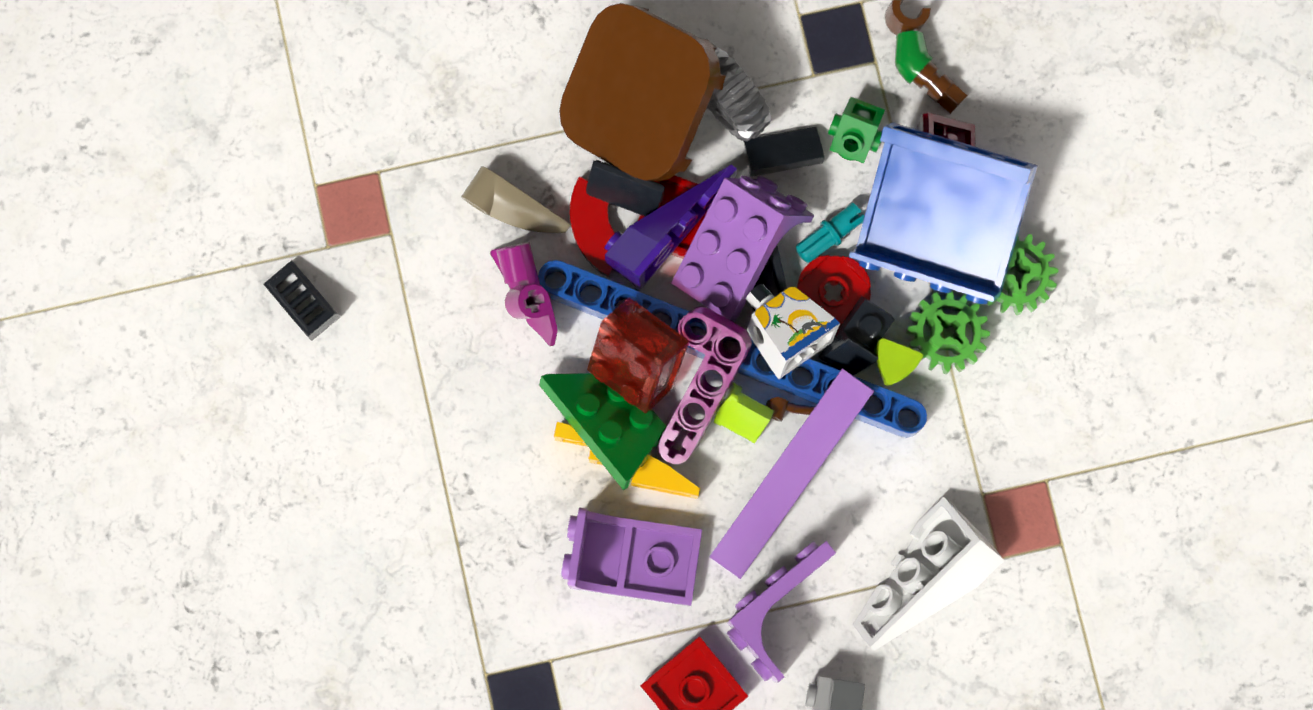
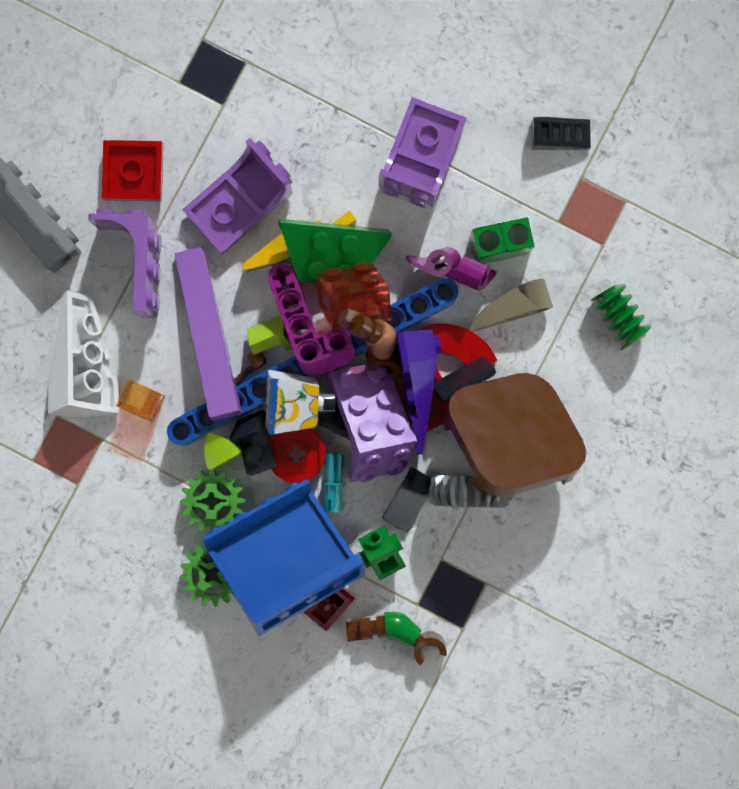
camera: 130 degrees right, 5 degrees up
(433, 94) = (622, 315): none -> green piece
(435, 417) = (421, 153): none -> medium lavender bracket
(470, 296) = (499, 253): none -> green piece
(660, 293) = (378, 335): none -> reddish brown piece
(913, 483) = (140, 400): none -> clear orange panel

